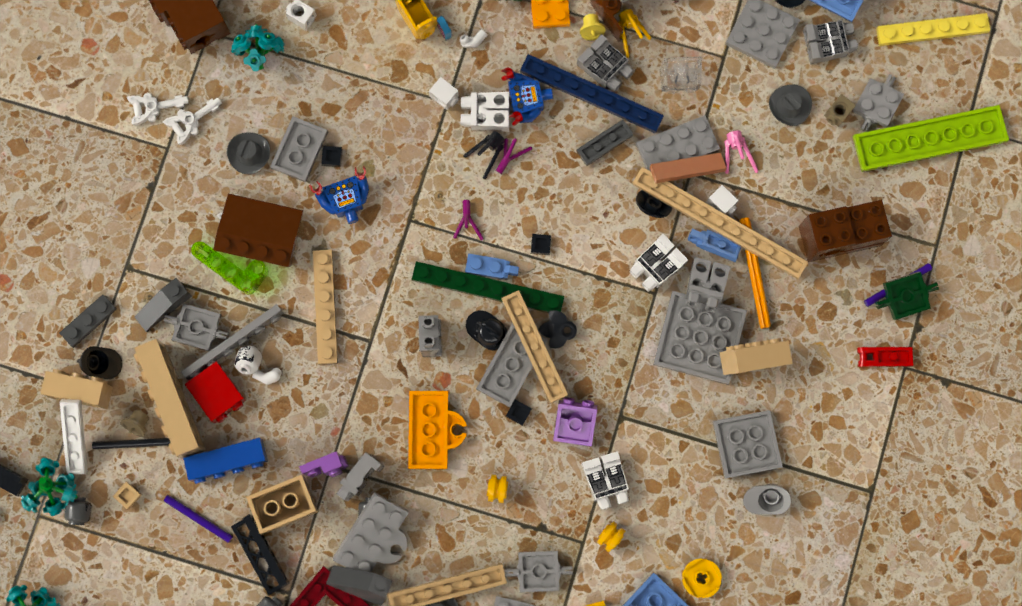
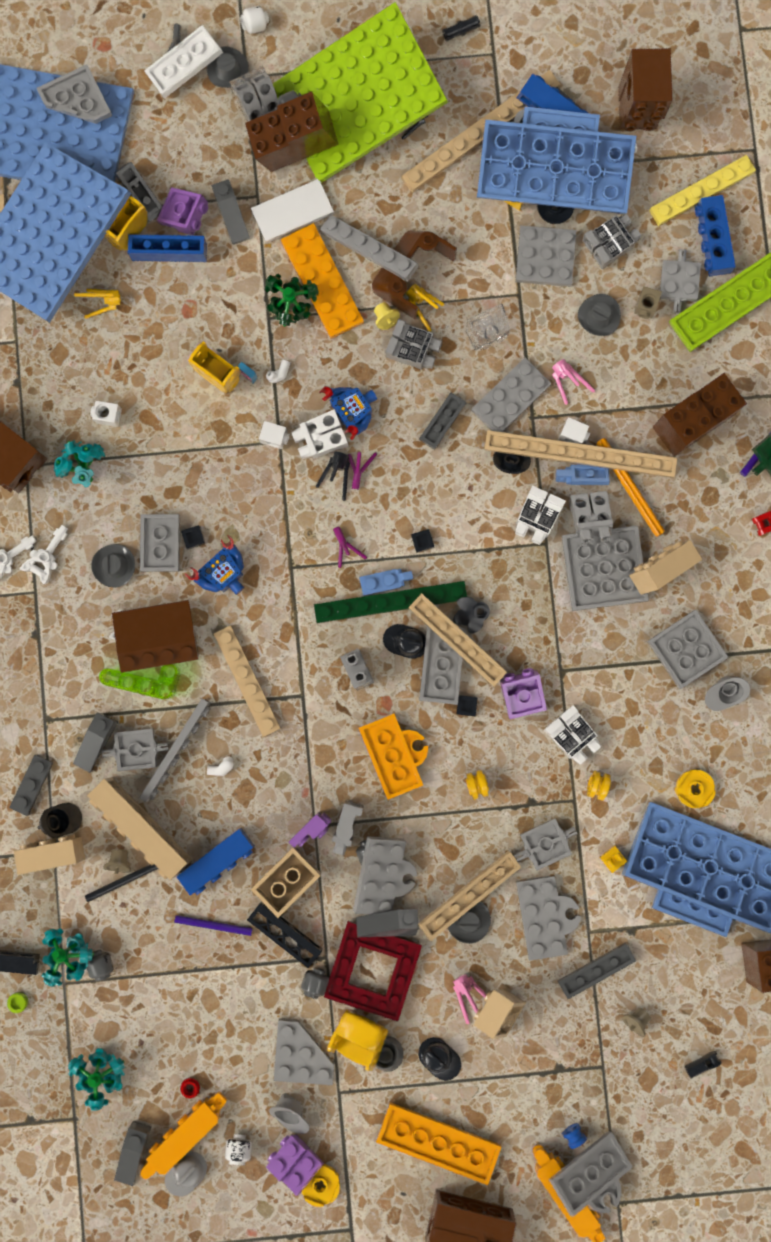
camera: 20 degrees left, 5 degrees up
(73, 436) = (65, 899): white tile -> none
(127, 495) = (138, 931): tan plate -> none
(215, 393) = (180, 803): red brick -> none
(248, 360) = (197, 761): white head -> none
(591, 93) = (411, 379): dark blue plate -> none
(688, 168) = (530, 414): nougat tile -> none
(937, 49) = (715, 207): none -> blue brick

